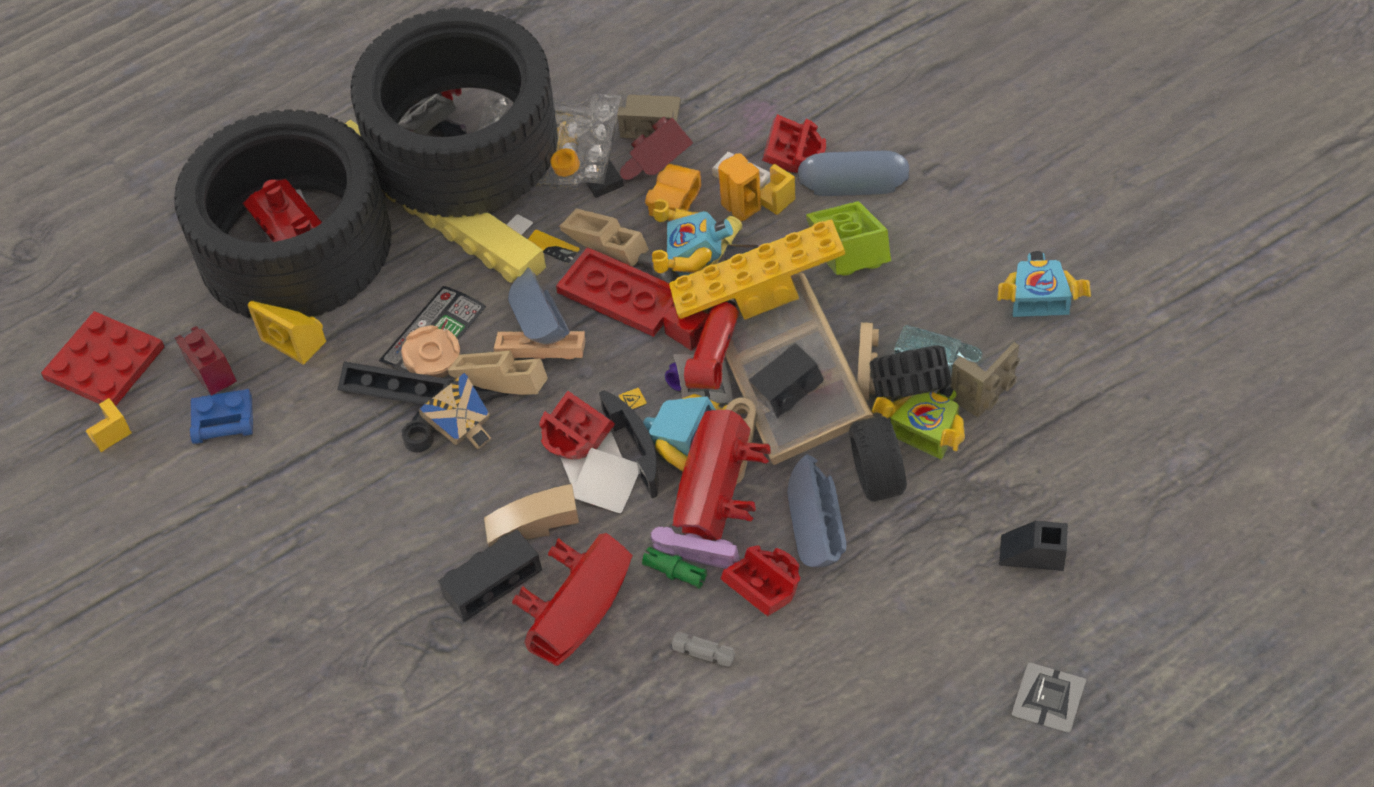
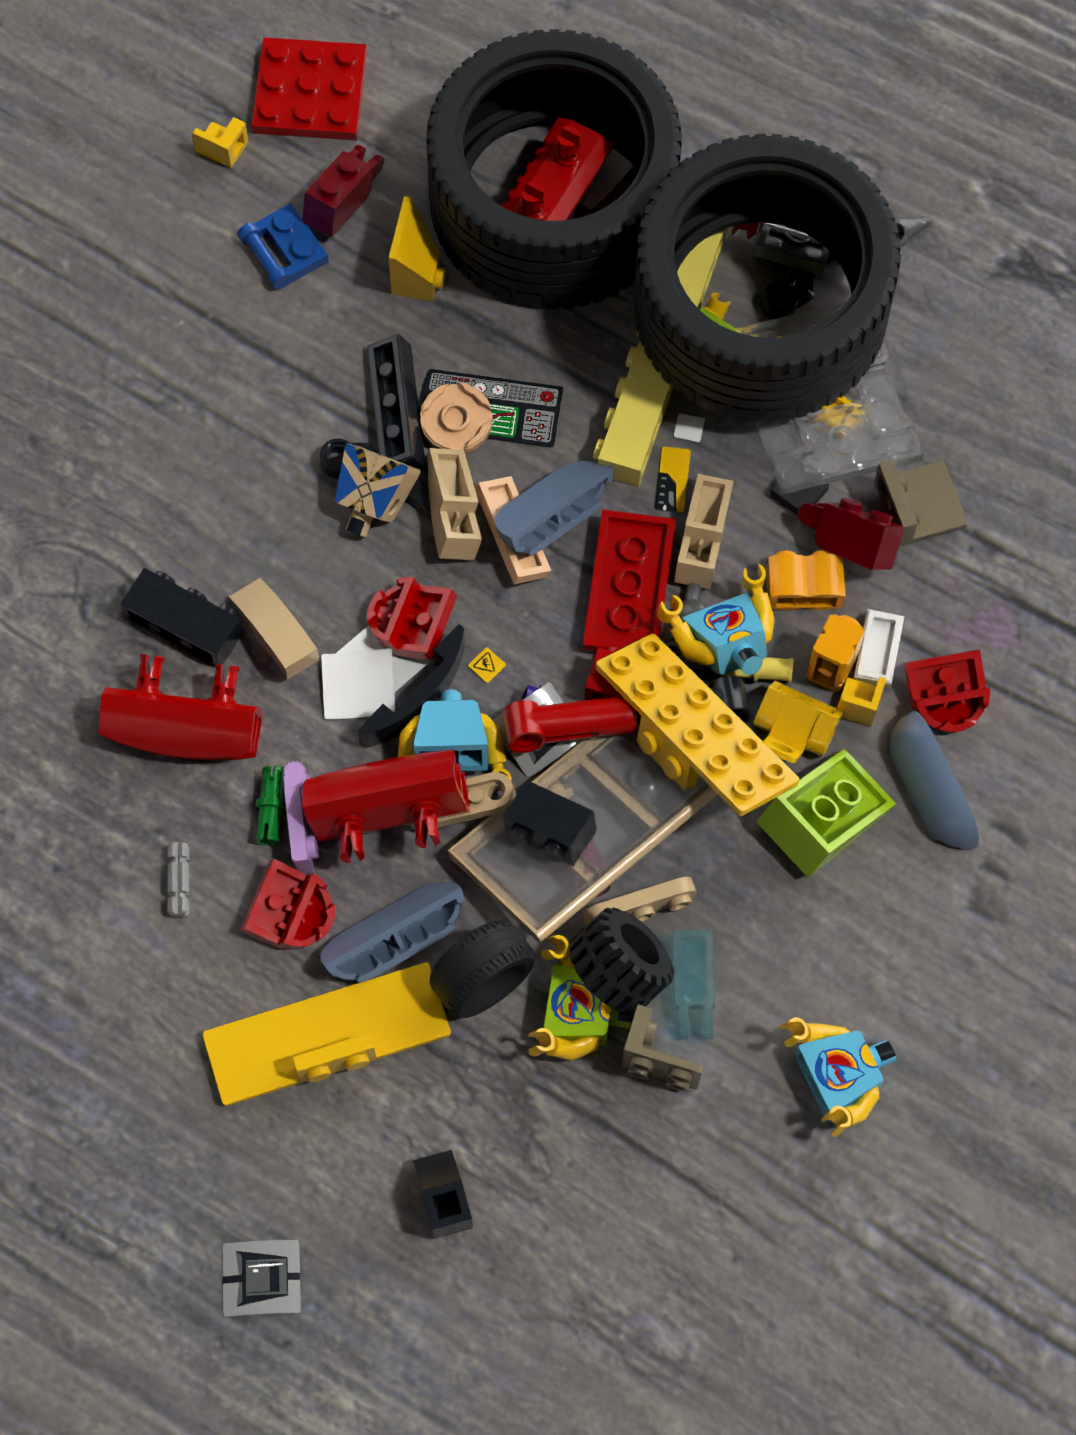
camera: 60 degrees right, 15 degrees up
(565, 162) = (781, 436): light orange tile -> none
(774, 224) = (796, 722): none -> yellow piece
(875, 590) = (325, 1034): none -> yellow bracket

